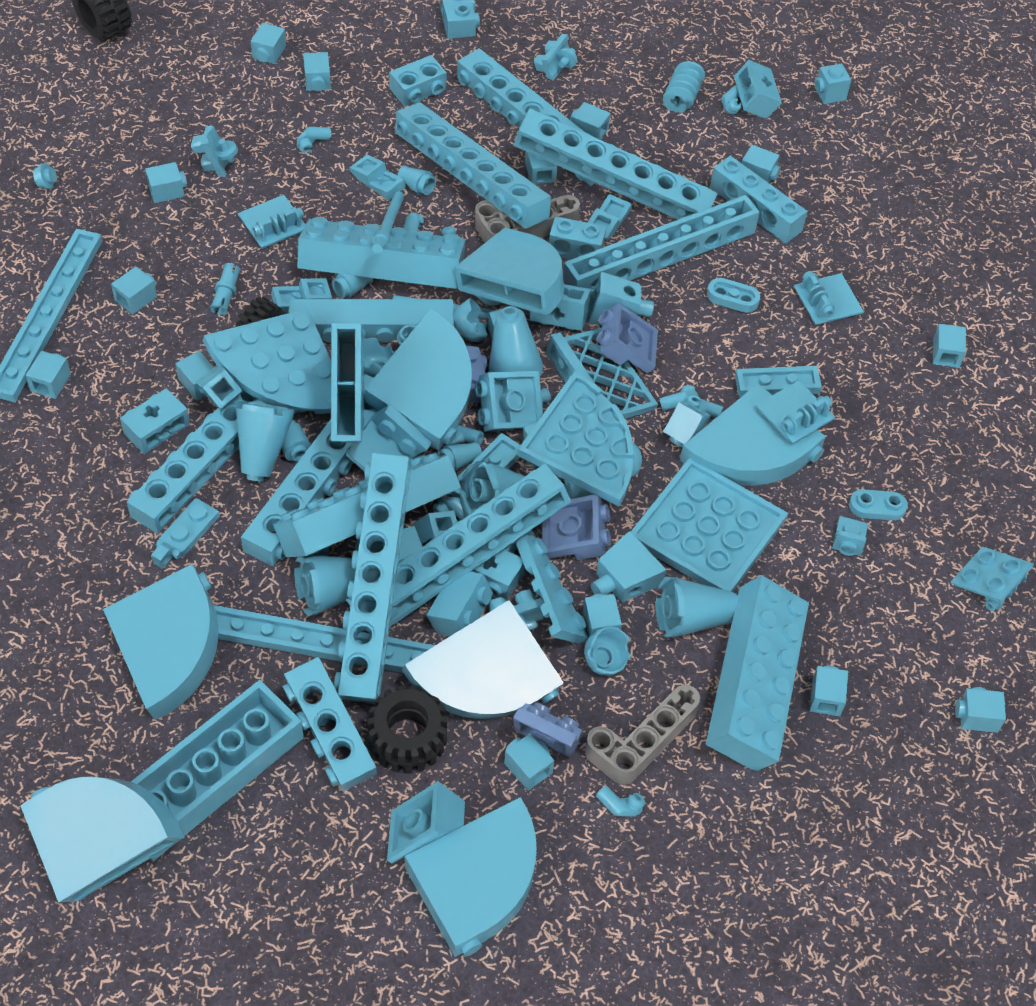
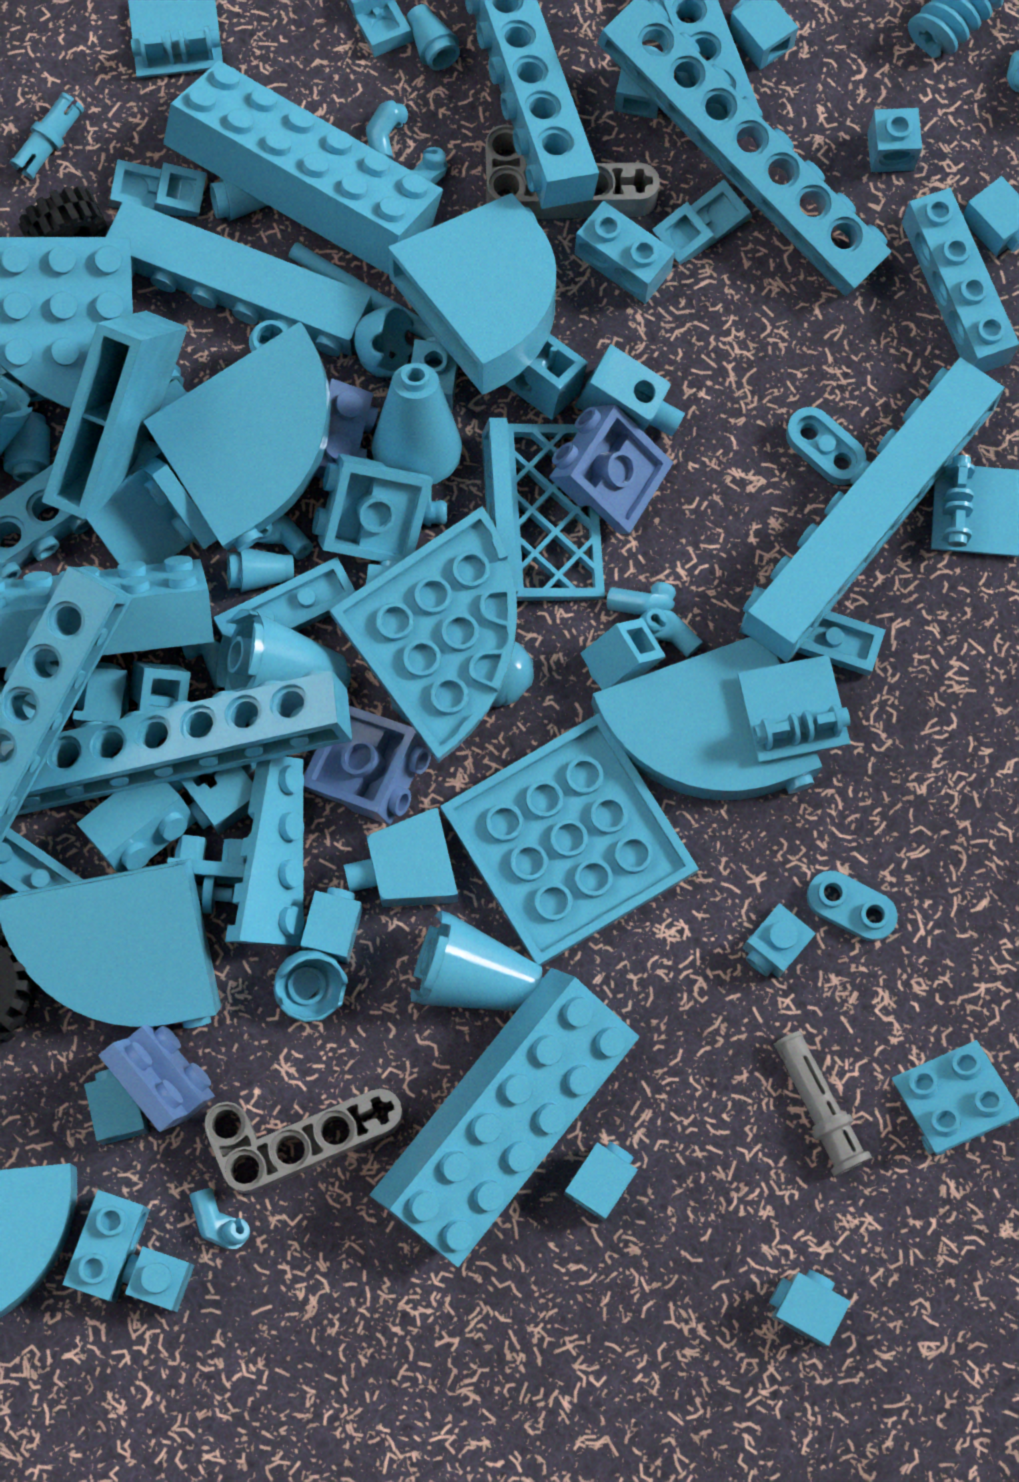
camera: 25 degrees right, 20 degrees up
(375, 356) = (207, 338): medium azure hair -> none
(381, 237) = (289, 157): medium azure bar -> none
(564, 839) = (106, 1246): none -> medium azure brick
(605, 844) = (157, 1278): none -> medium azure brick
(665, 244) = (752, 317): medium azure brick -> none
(686, 148) = (894, 139): none -> medium azure brick
(778, 311) = (871, 509): none -> medium azure brick
(934, 614) = (830, 1123): none -> light grey pin

